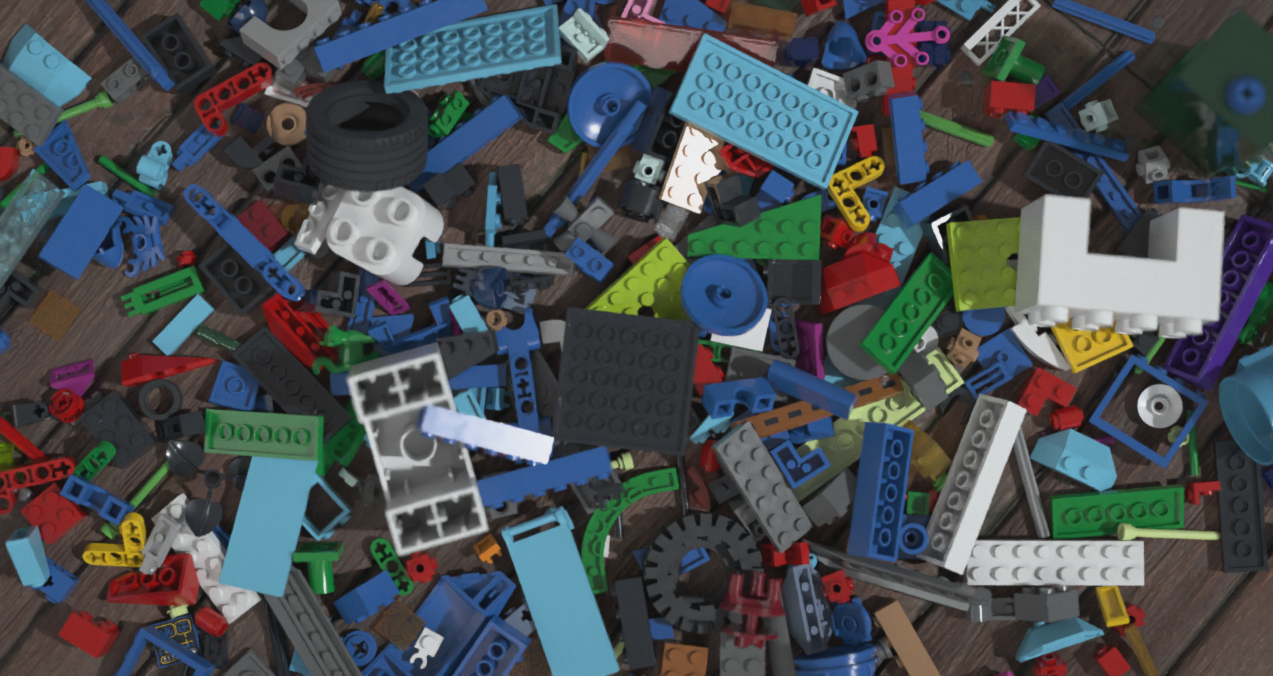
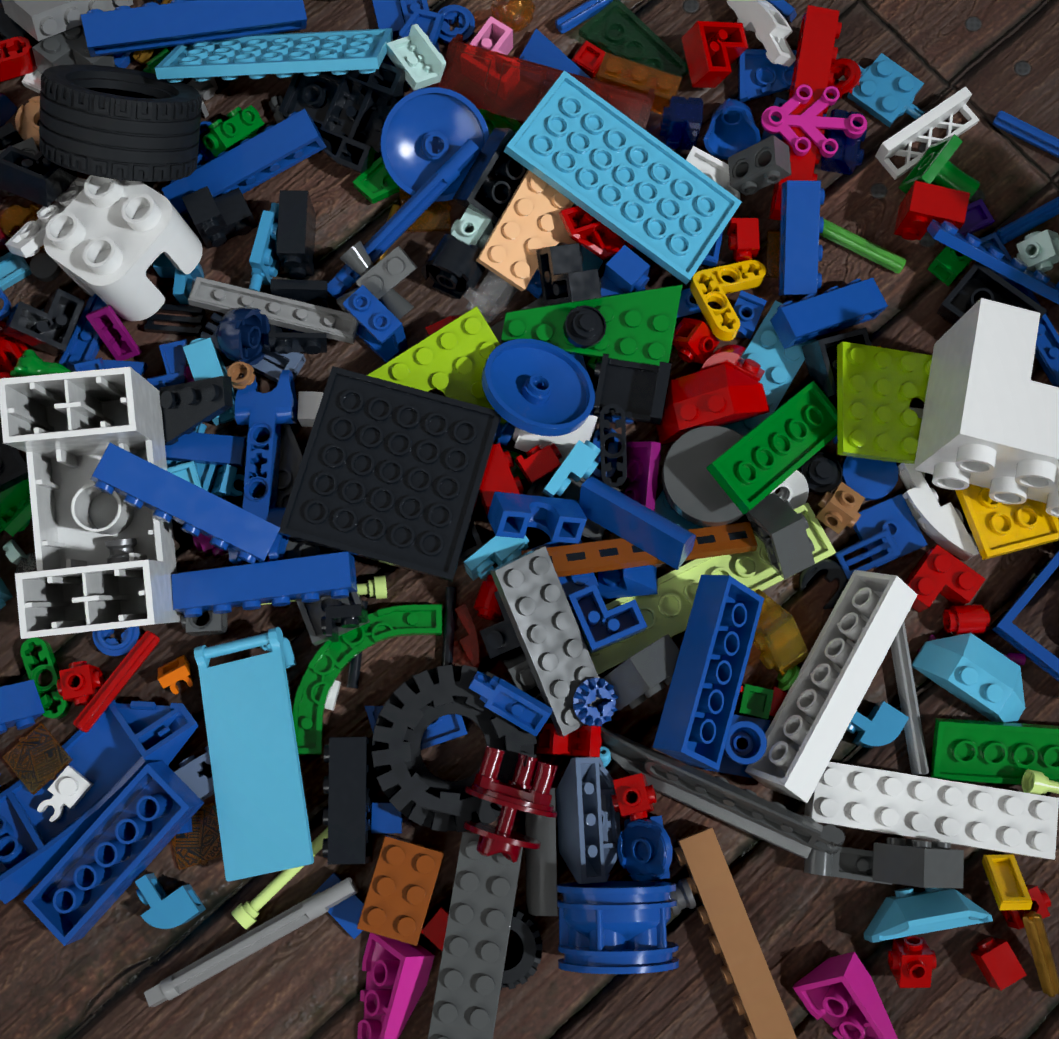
camera: 10 degrees right, 10 degrees down
(435, 468) = (120, 549): none -> flat silver wheel
(444, 570) = (116, 682): none -> red axle
(732, 351) = (539, 462): none -> red brick
(740, 536) = (511, 703): none -> blue hinge
(751, 241) = (584, 327): none -> black plate
(762, 351) = (577, 465): none -> medium azure plate
(794, 521) = (586, 694): none -> blue gear
(1010, 509) = (880, 726): none -> dark azure brick

